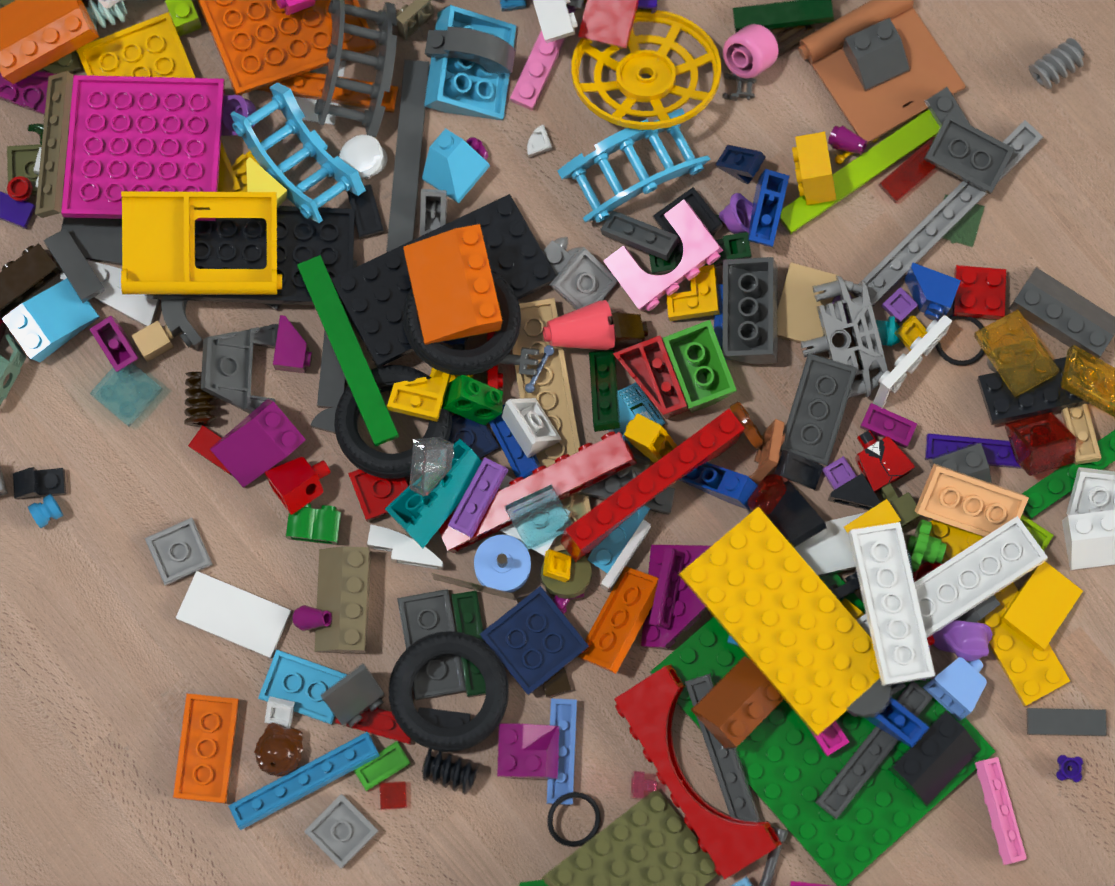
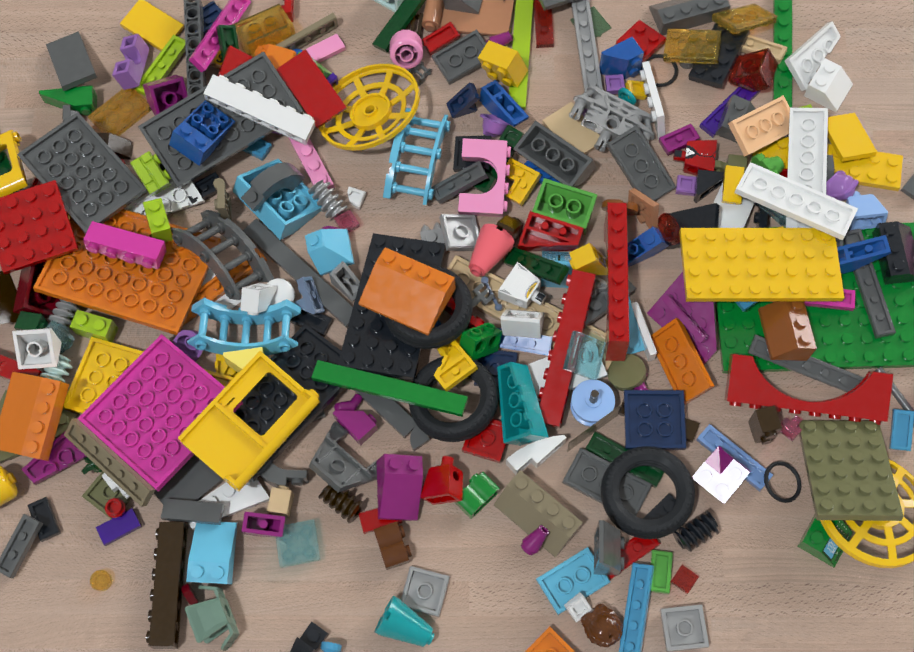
camera: 45 degrees left, 10 degrees down
(127, 558) = (404, 624): none -> teal cone
(197, 483) = (392, 545): none -> reddish brown brick
(233, 614) = (492, 588): white tile -> none
(303, 325) = (349, 405): none -> magenta arm
(336, 139) = (257, 298): none -> white slope
(382, 194) = (311, 301): none -> sand blue slope
(429, 463) = (501, 392): clear slope -> none
(478, 497) = (543, 382): medium lavender tile -> none
(501, 156) = (347, 221): none -> clear pink plate
(506, 117) = (325, 198): none -> light grey piece
(557, 565) = (619, 371): yellow tile -> none
(568, 395) = (521, 288): none -> white torso
(617, 757) = (765, 425): none -> dark brown brick
(794, 113) = (460, 57): none -> dark grey tile
(799, 469) = (668, 200): black tile -> none
(800, 75) = (440, 38): none -> red tile
(872, 701) = (845, 254): dark grey tile -> none

